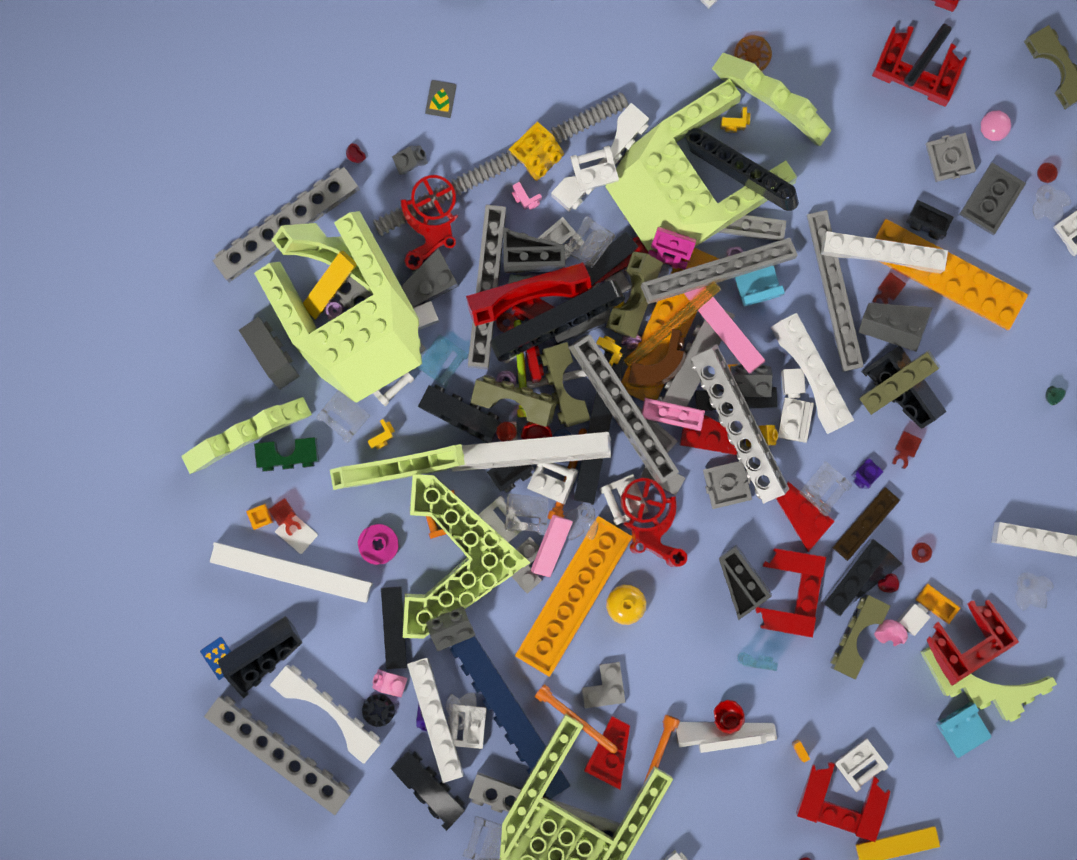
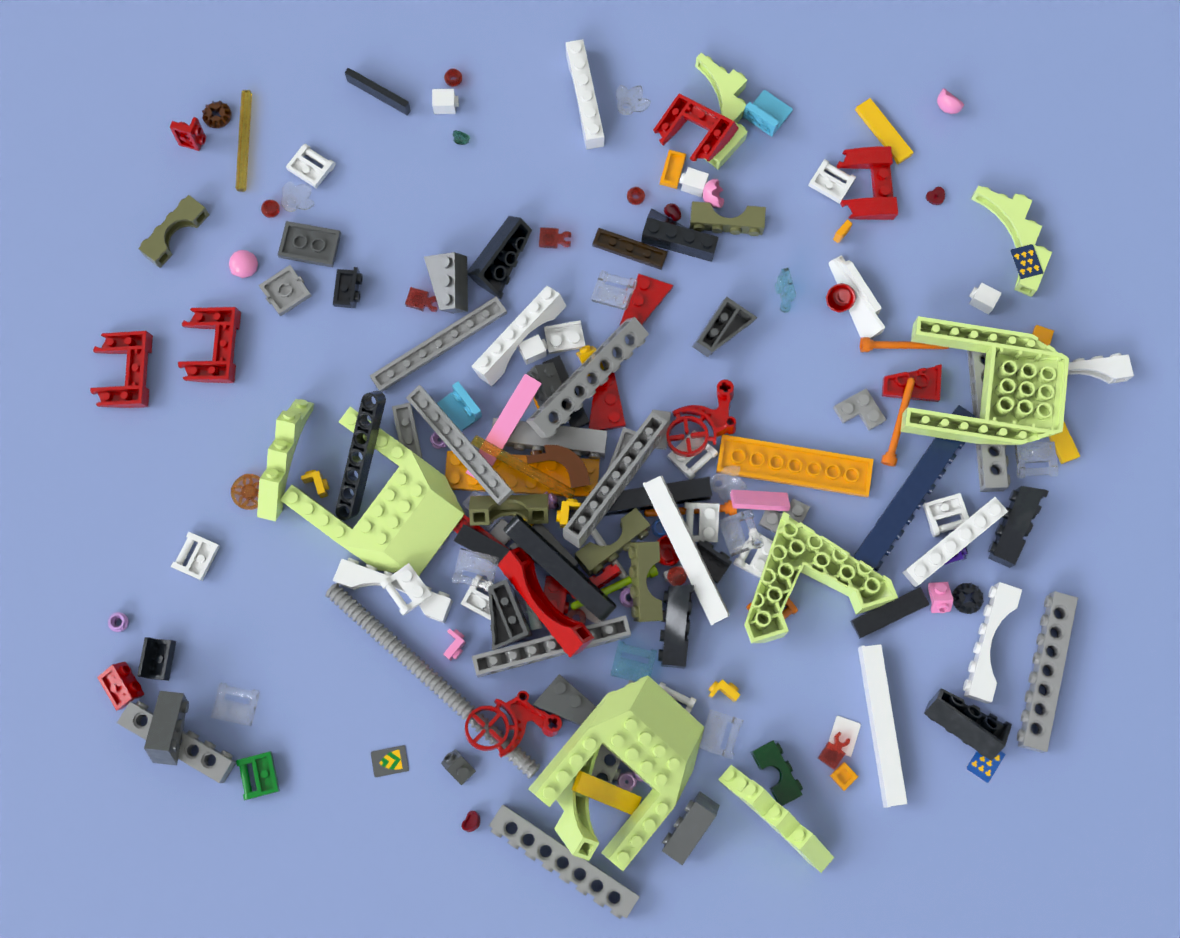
camera: 115 degrees left, 10 degrees down
(384, 554) = (830, 647): dark pink plate -> none
(397, 468) = (748, 662): yellowish green arch -> none
(426, 315) = (597, 692): white brick -> none
(450, 629) = (872, 557): dark grey bracket -> none
(465, 708) = (934, 520): clear plate -> none
(537, 151) = (407, 649): yellow bracket -> none
(626, 604) = (782, 419): yellow cylinder -> none
(673, 414) = (602, 437): bright pink tile -> none
(674, 244) = (450, 492): dark pink plate -> none
(727, 484) = (644, 372): light grey plate -> none
(803, 619) = (688, 277): red wedge -> none
(866, 474) = (588, 262): dark purple bracket -> none
(897, 253) = (390, 312): white arch -> none
(900, 382) = (488, 248): olive arch -> none
(927, 55) = (198, 339): black axle -> none
(960, 281) = (389, 259): light orange plate -> none

